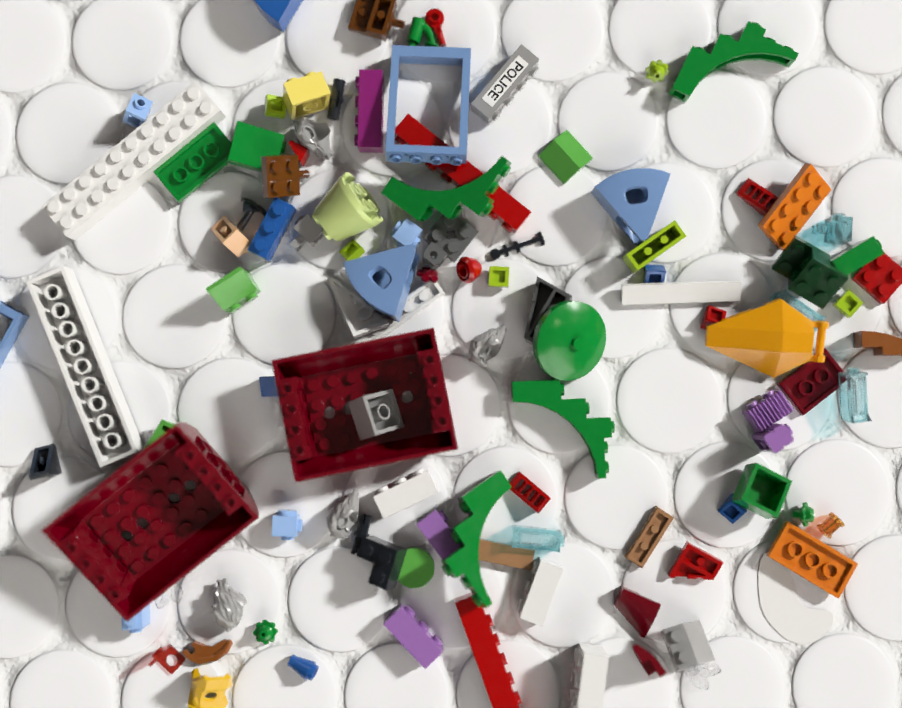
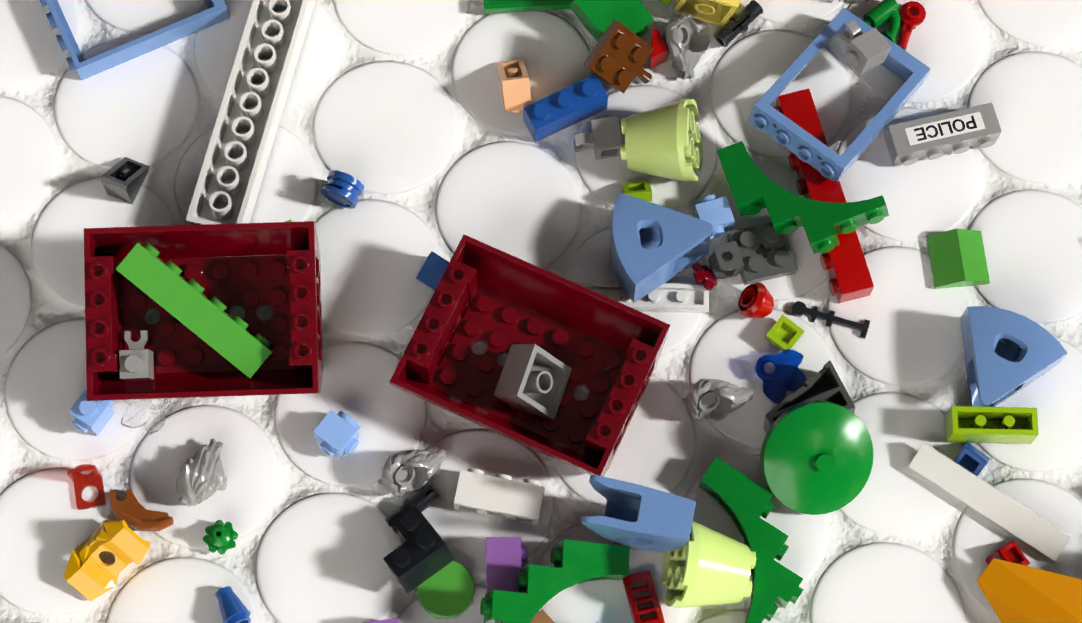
camera: 30 degrees right, 15 degrees down
(137, 573) = (136, 362): none -> light grey brick
(146, 521) = (194, 310): none -> bright green brick
(178, 376) = (342, 189): none -> blue wheel
(234, 290) = (475, 139): bright green slope -> none
(249, 208) = (559, 70): black plant -> none
(359, 317) = (592, 259): white wing -> none
(370, 111) = (769, 59): magenta brick -> none
(425, 64) = (864, 49): none -> light grey brick
(499, 454) = (641, 516): none -> medium blue piece
(516, 302) = (785, 376): none -> clear blue plate
(552, 452) = (707, 570): none -> yellowish green cone

